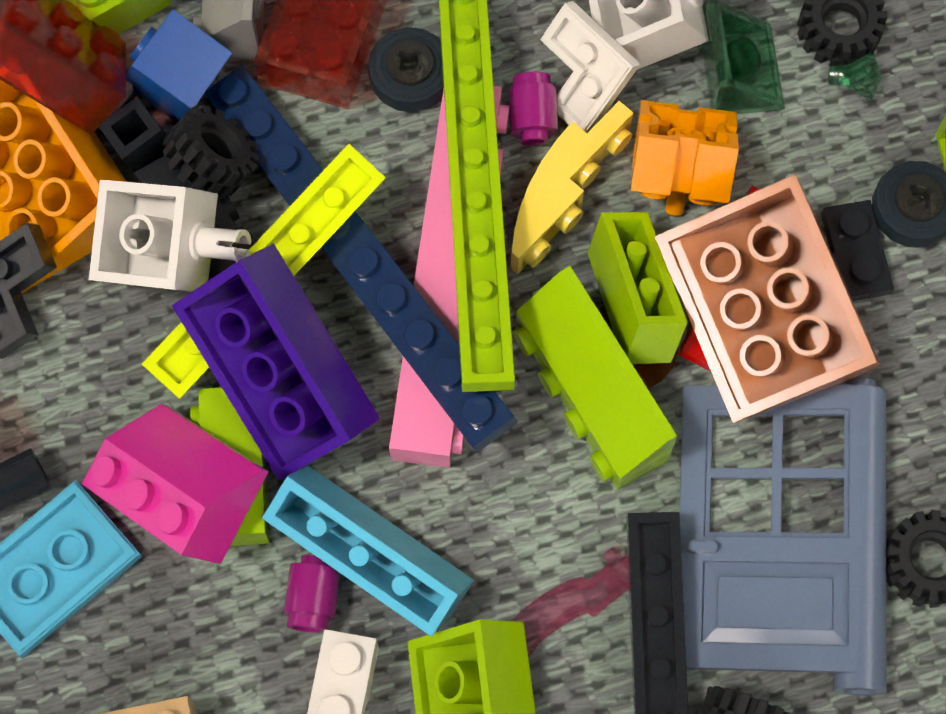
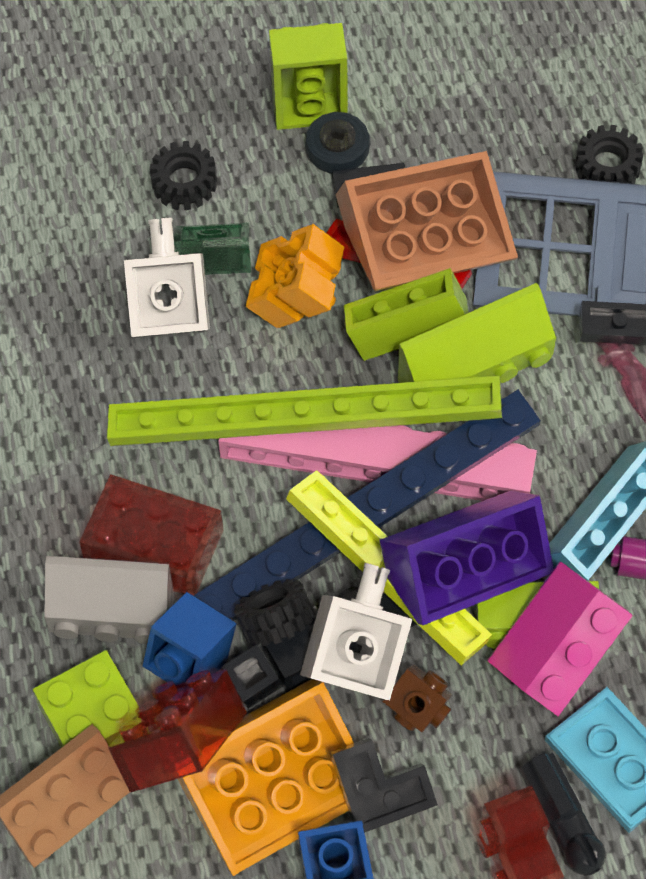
camera: 85 degrees left, 10 degrees down
(113, 326) = (405, 702): none -> reddish brown brick
(402, 86) = (210, 486): black wheel -> none
(533, 108) = (241, 381): magenta brick -> none
(554, 193) = (292, 362): light yellow slope -> none
(597, 62) = (217, 331): white tile -> none
(860, 76) = (229, 168): clear green rock -> none

